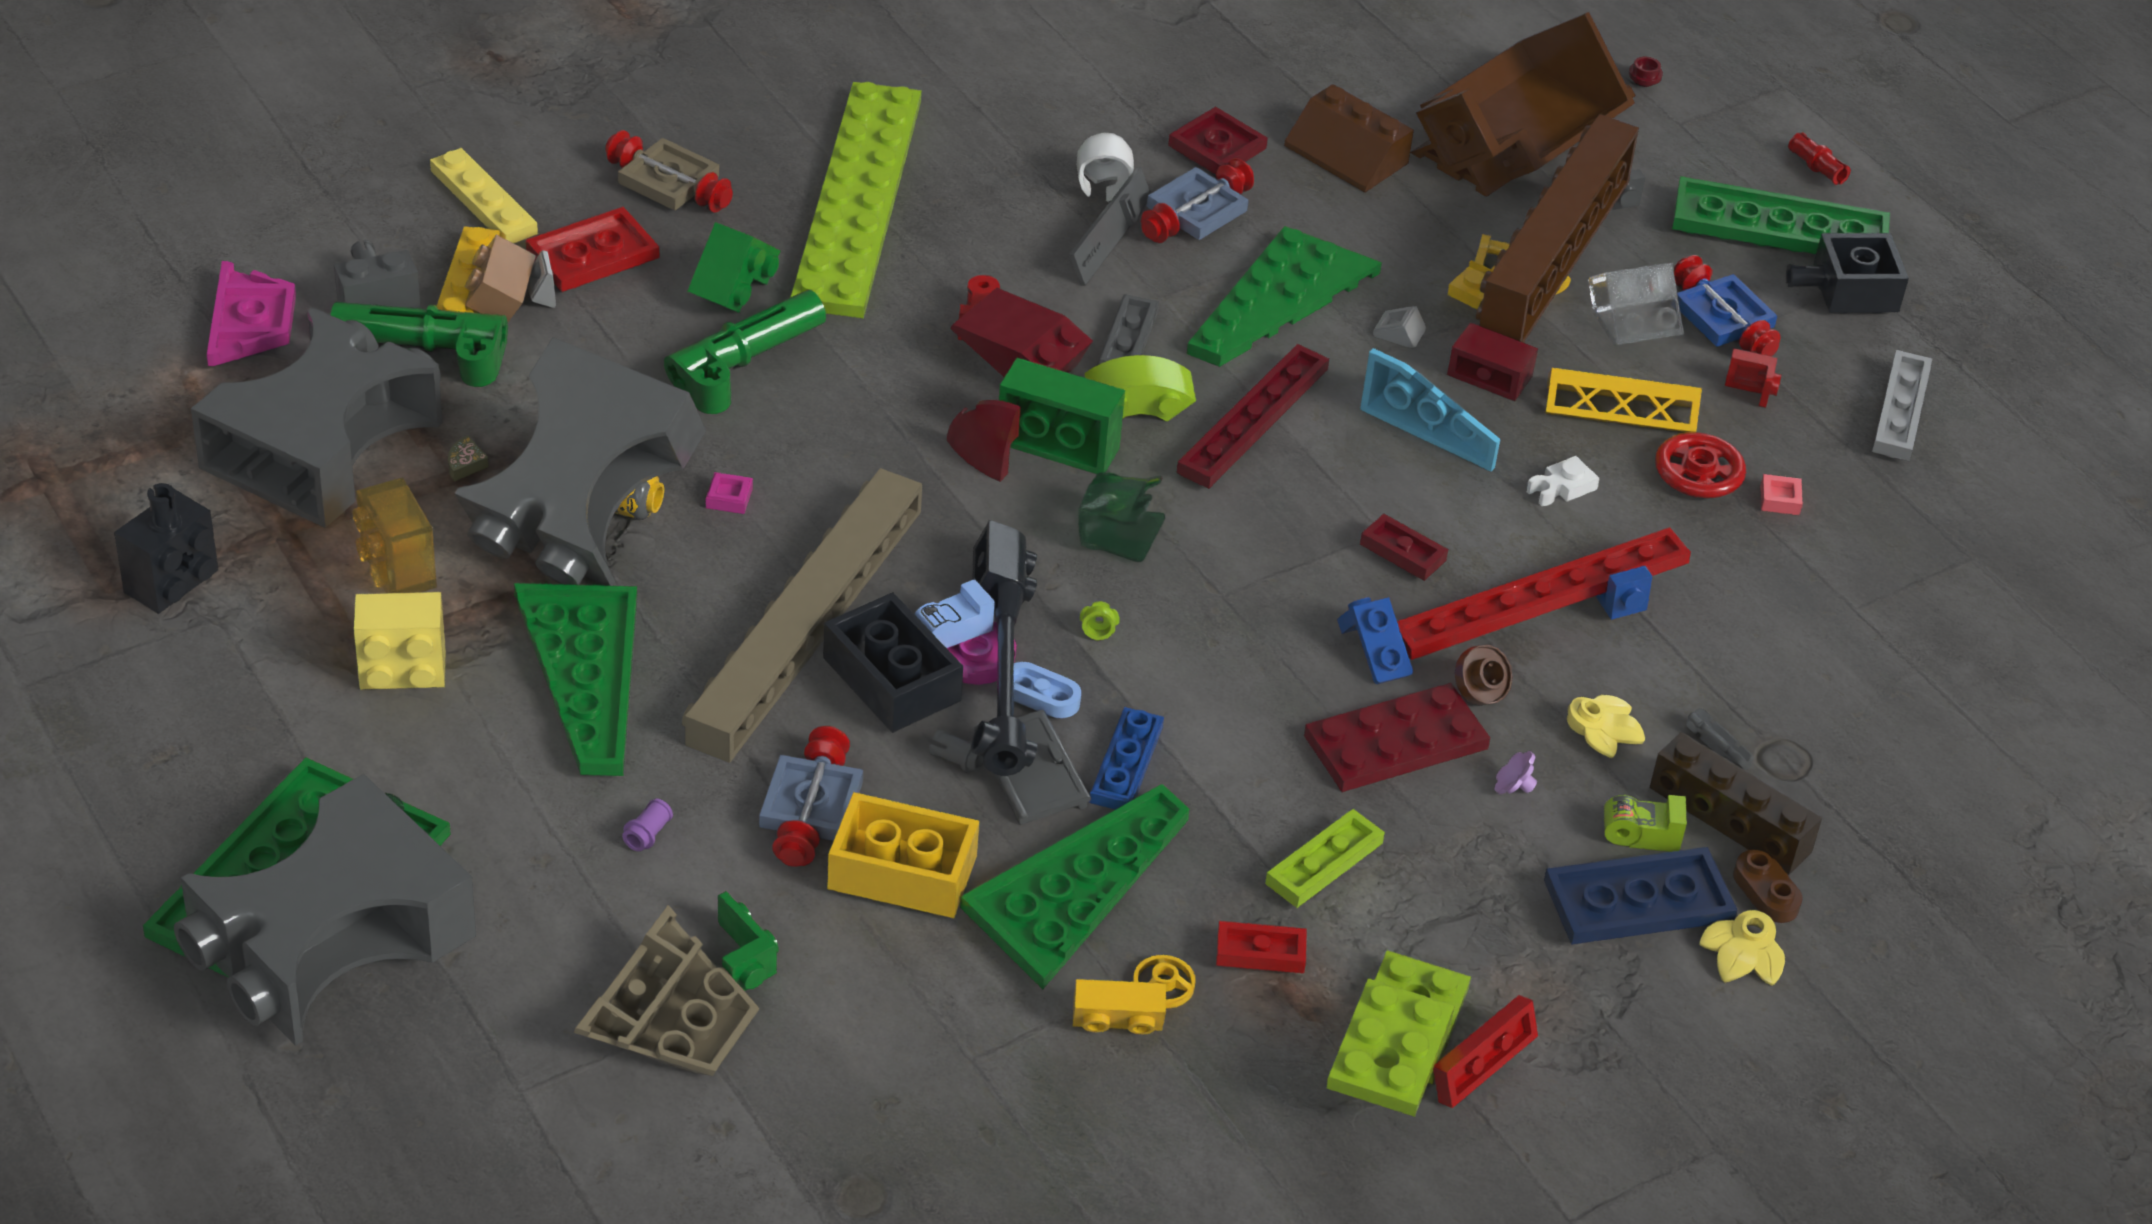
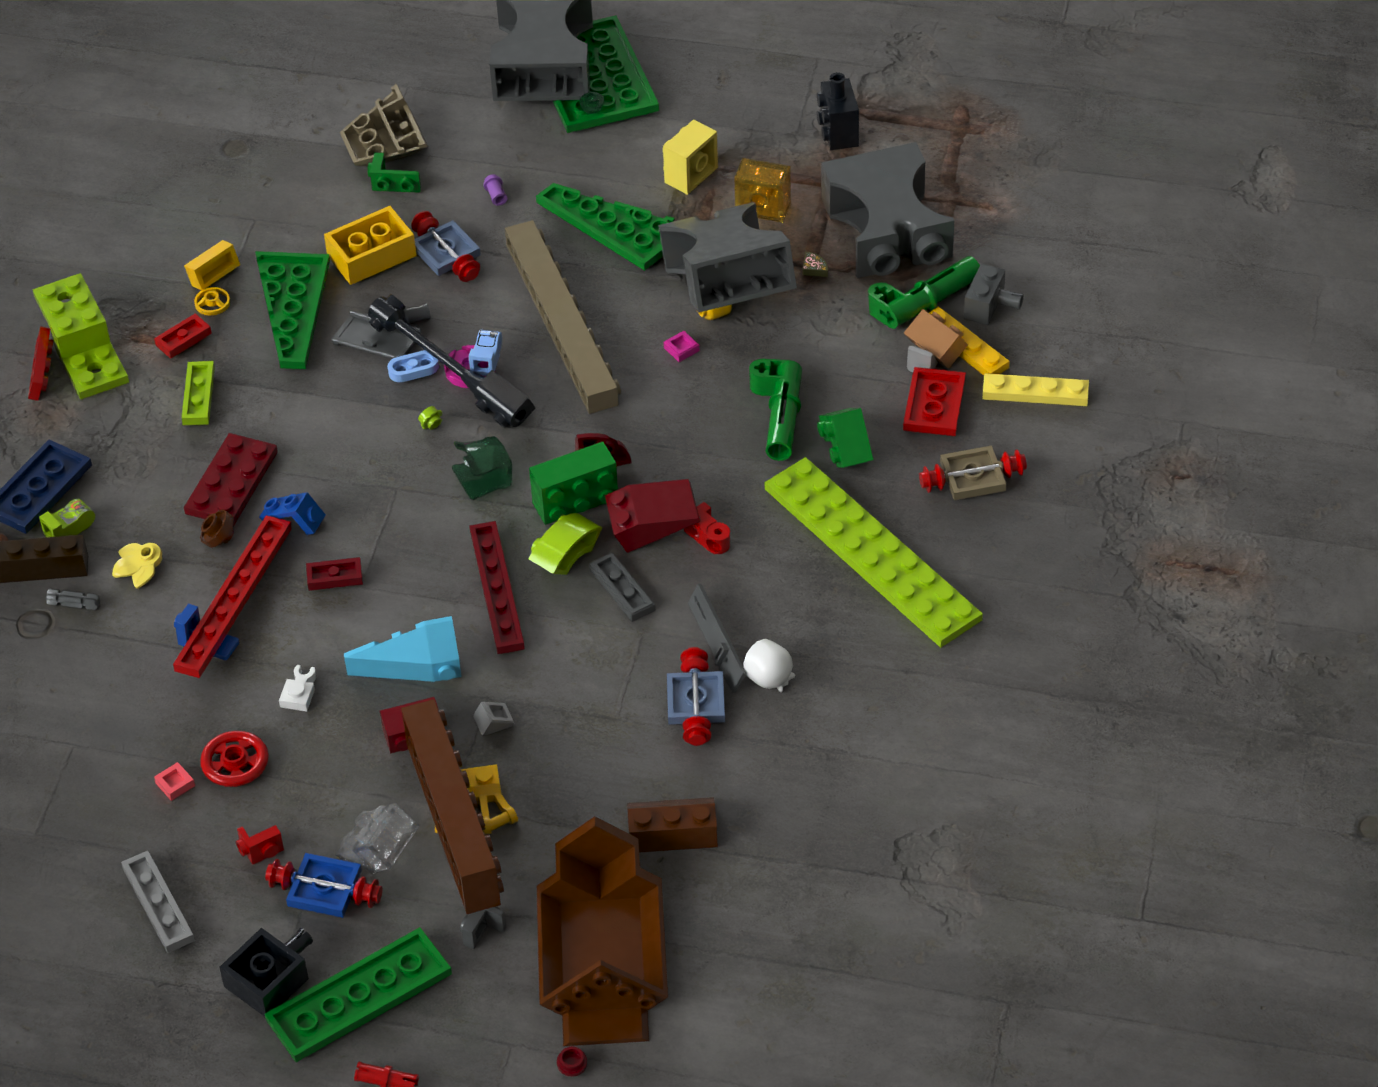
camera: 140 degrees right, 5 degrees up
(249, 315) = (1017, 243): dark pink wing -> none
(892, 662) = (485, 308): black brick -> none
(1126, 758) = (340, 373): blue tile -> none
(1217, 139) = (742, 753): dark red plate -> none
(1282, 286) = (584, 691): green wing -> none
(1517, 774) = (151, 497): lavender plant -> none
(1625, 388) = (320, 768): yellow fence -> none

